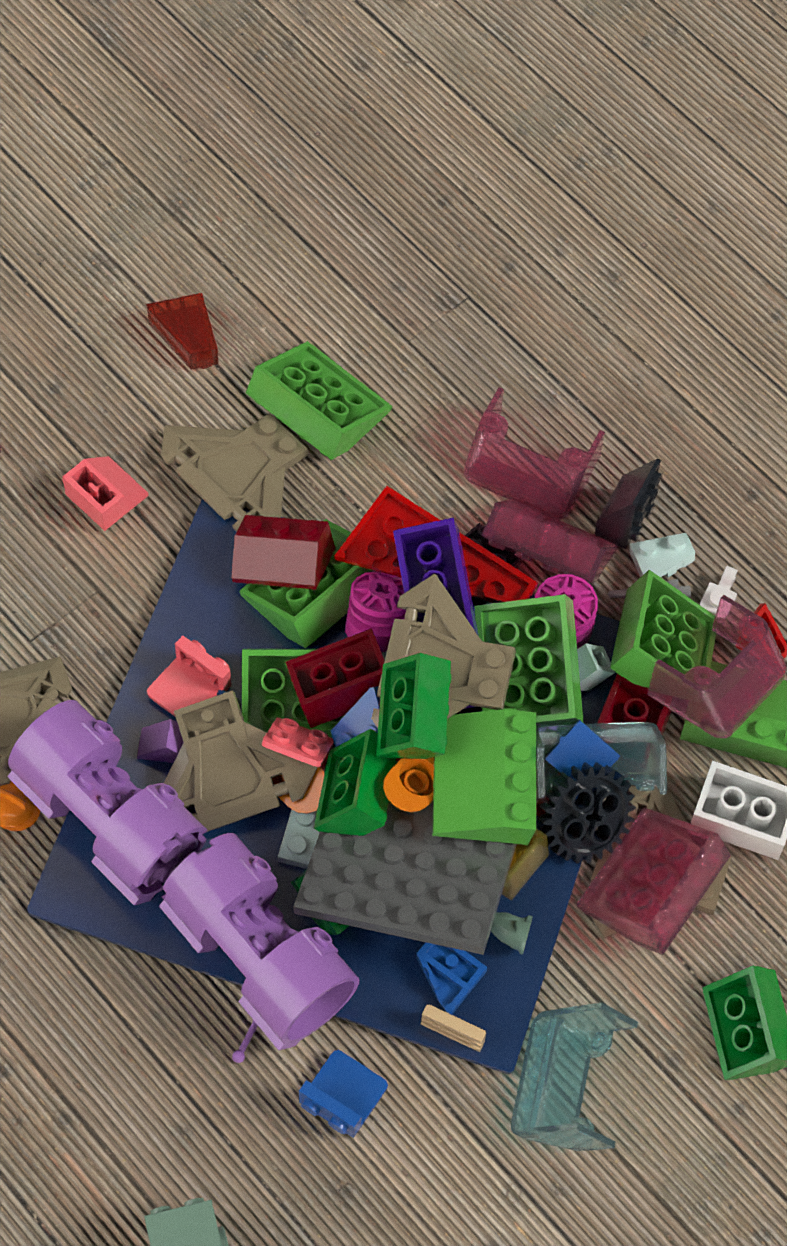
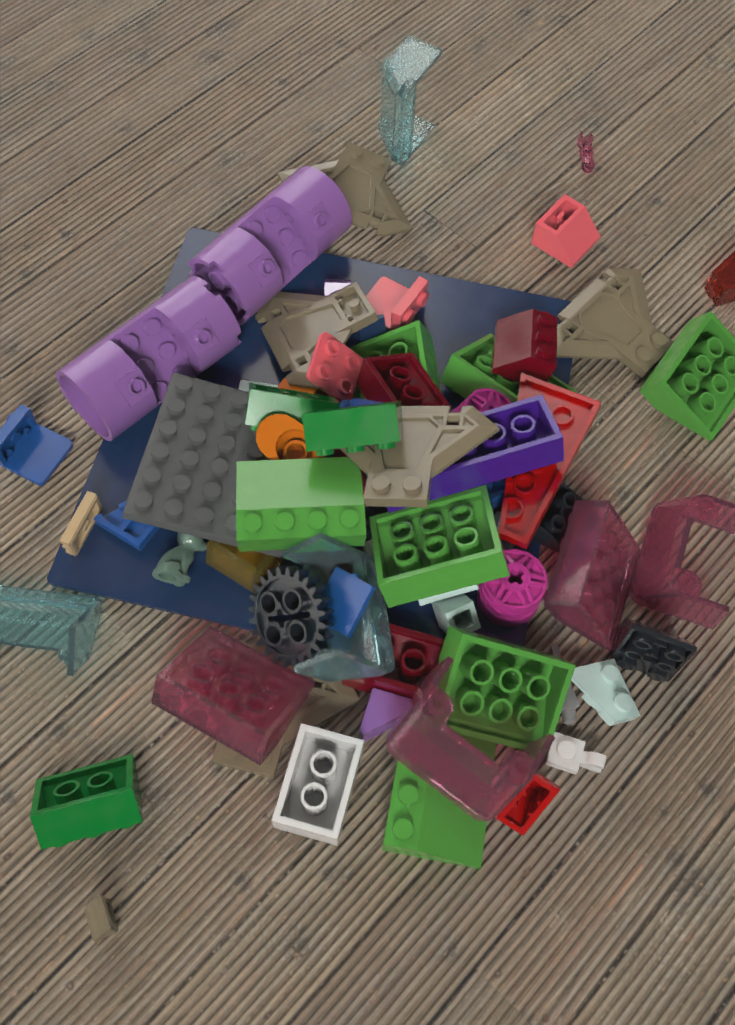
camera: 85 degrees right, 0 degrees up
(680, 752) = (381, 713): none -> medium lavender slope

